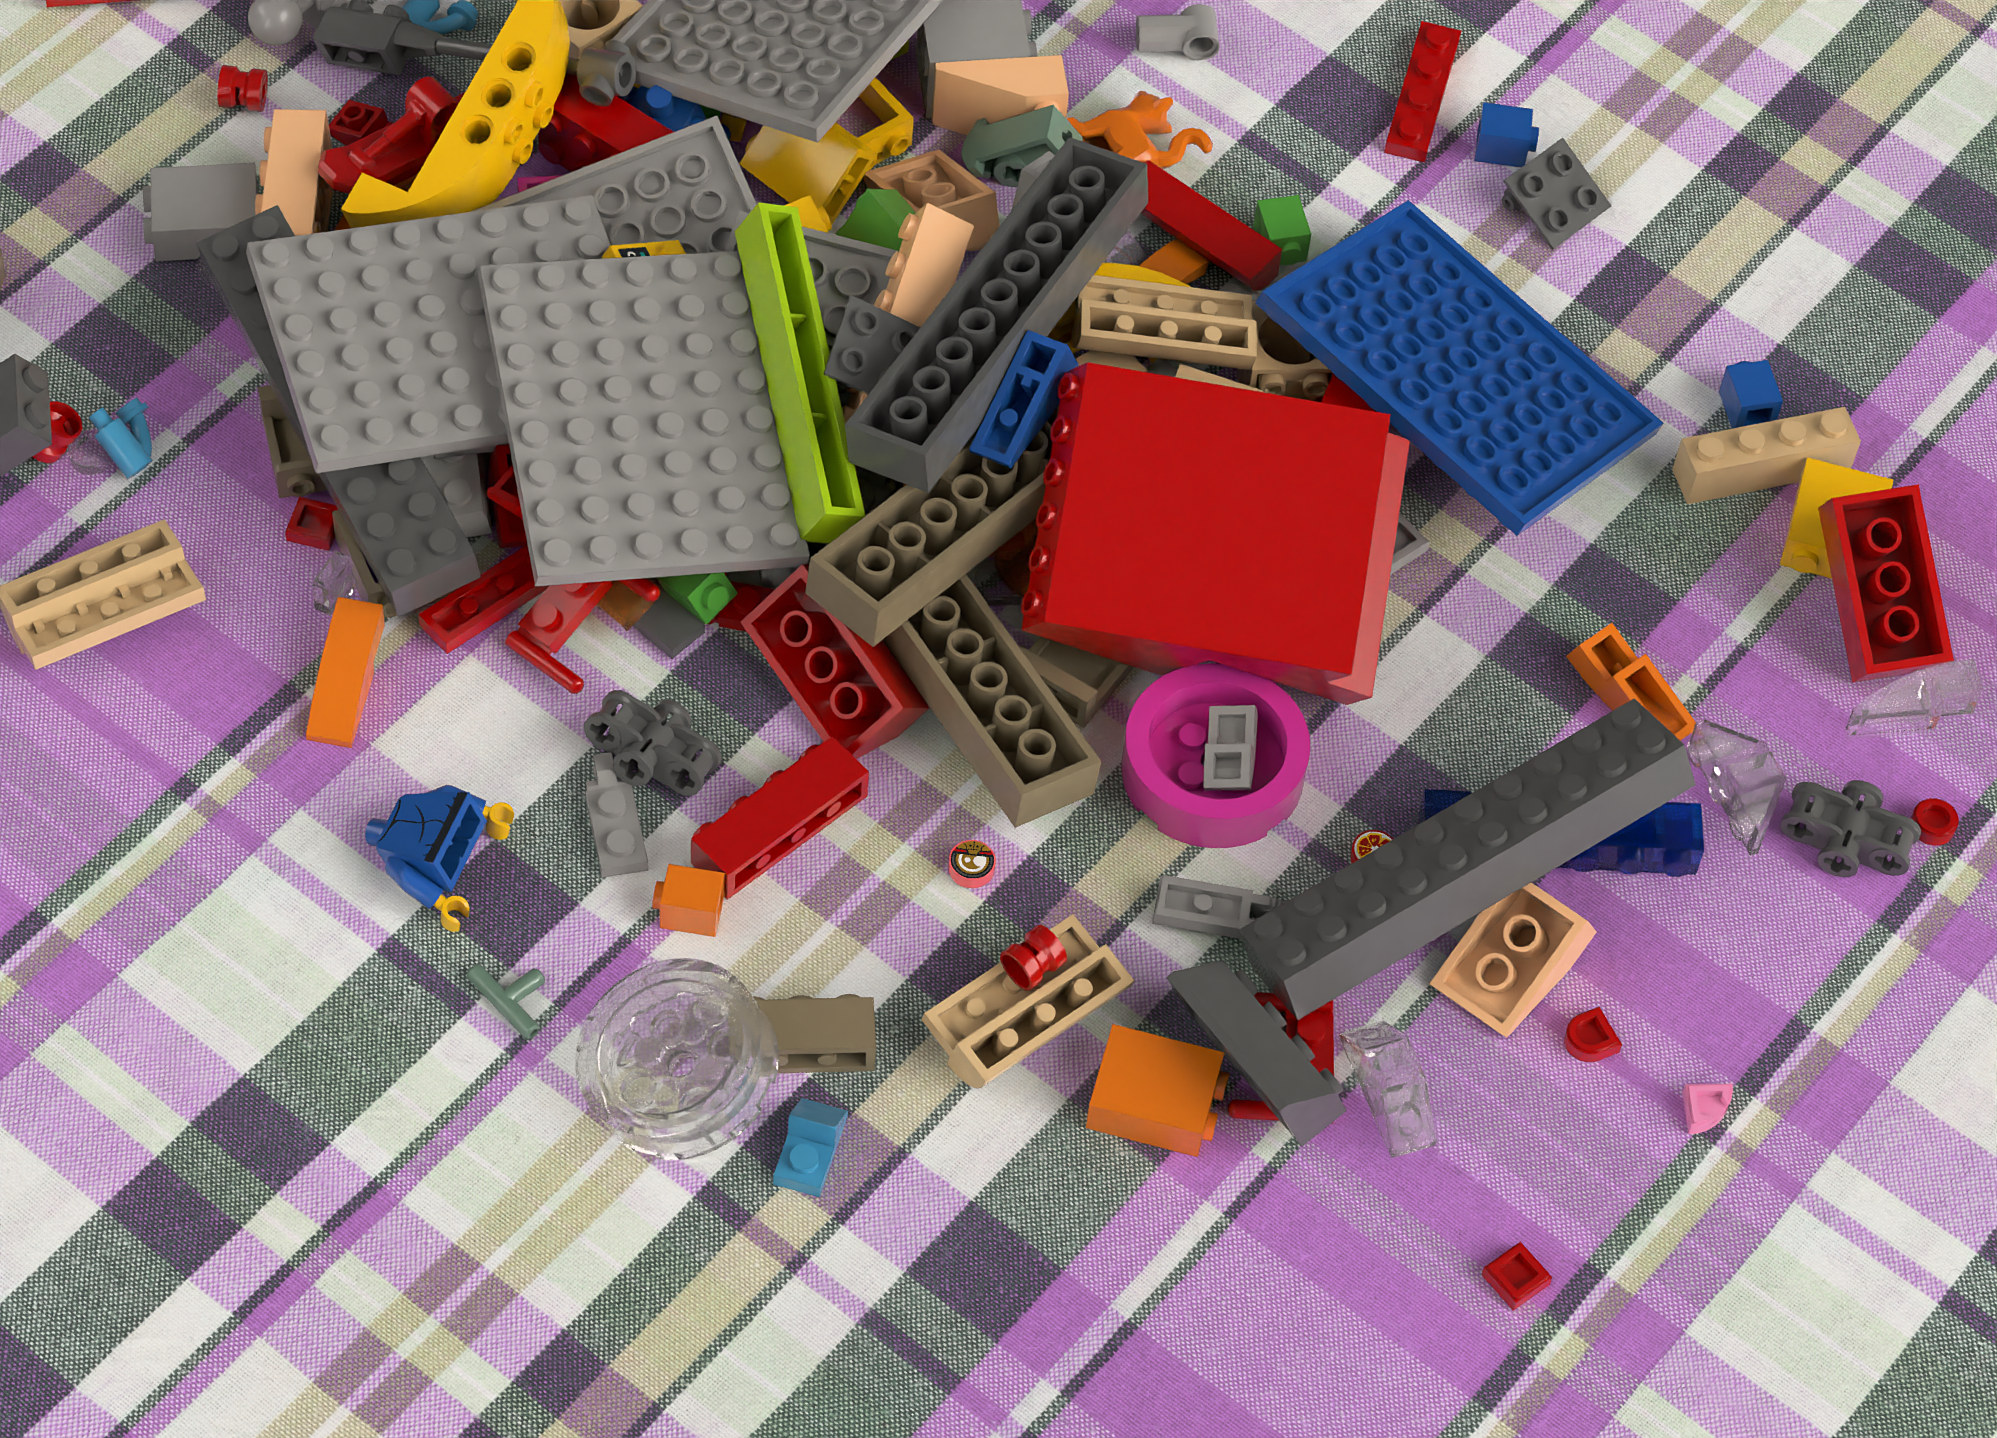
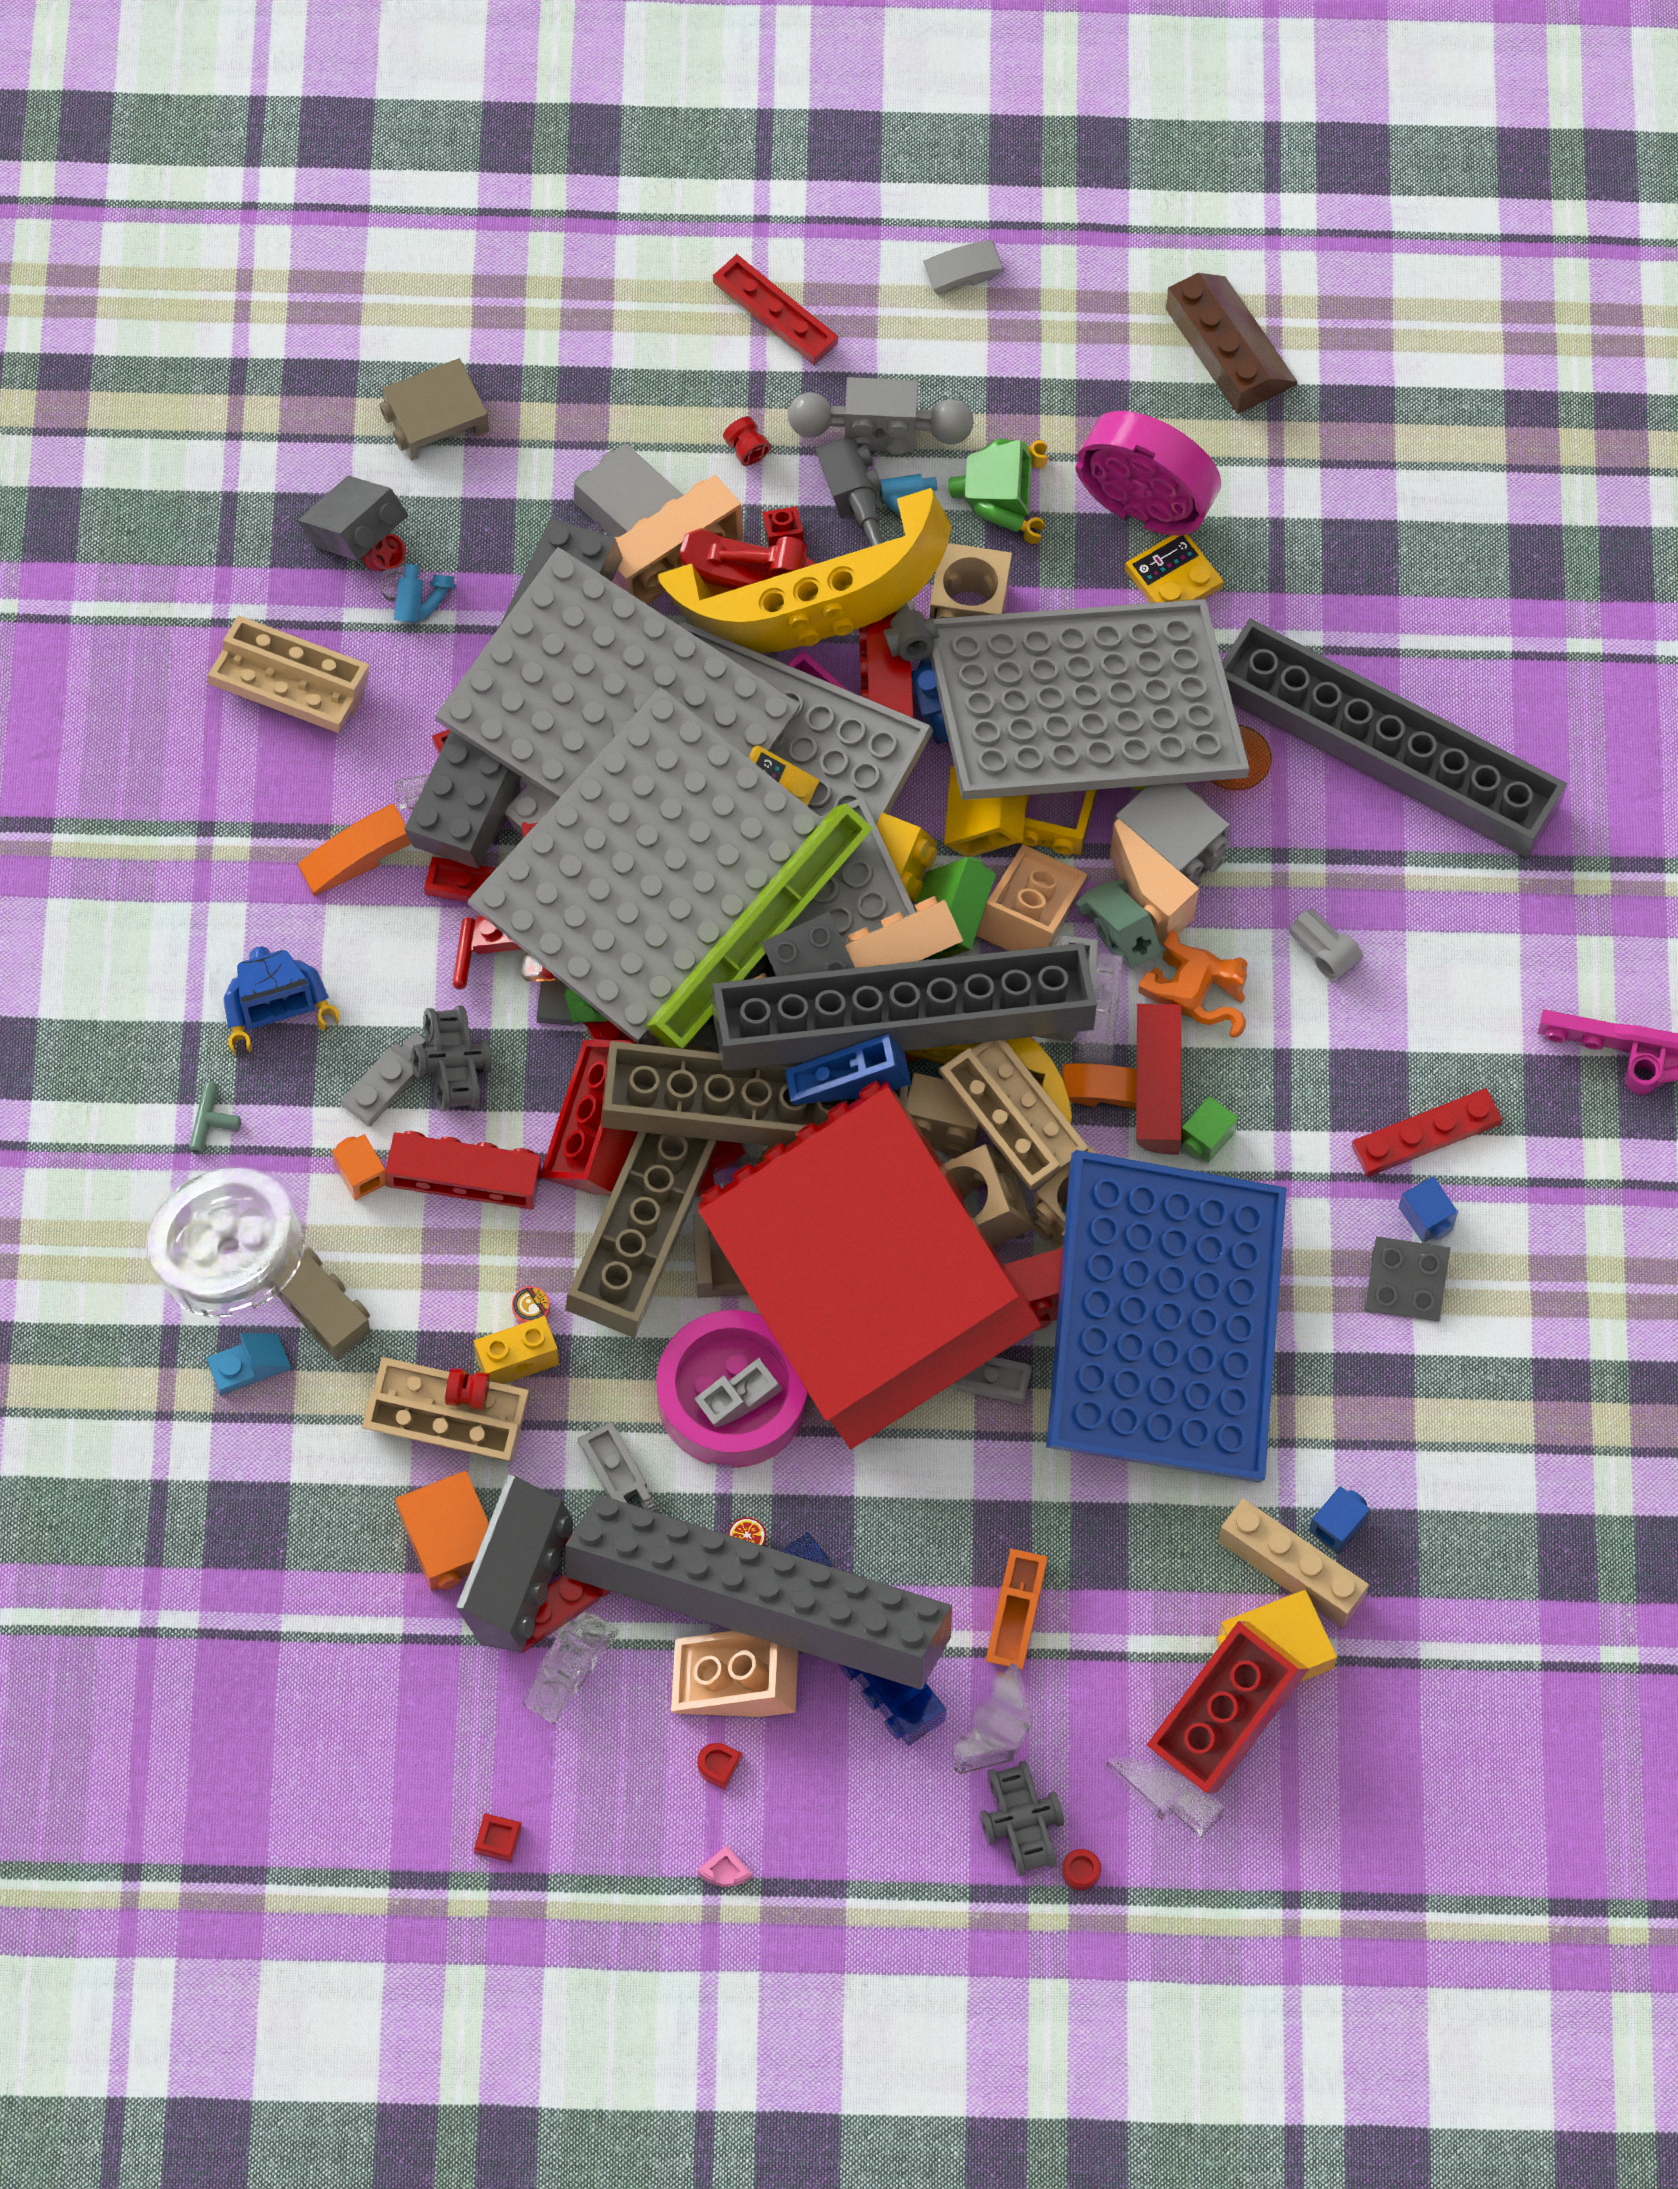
camera: 55 degrees right, 10 degrees up
(1016, 899) = (517, 1351): none -> yellow brick

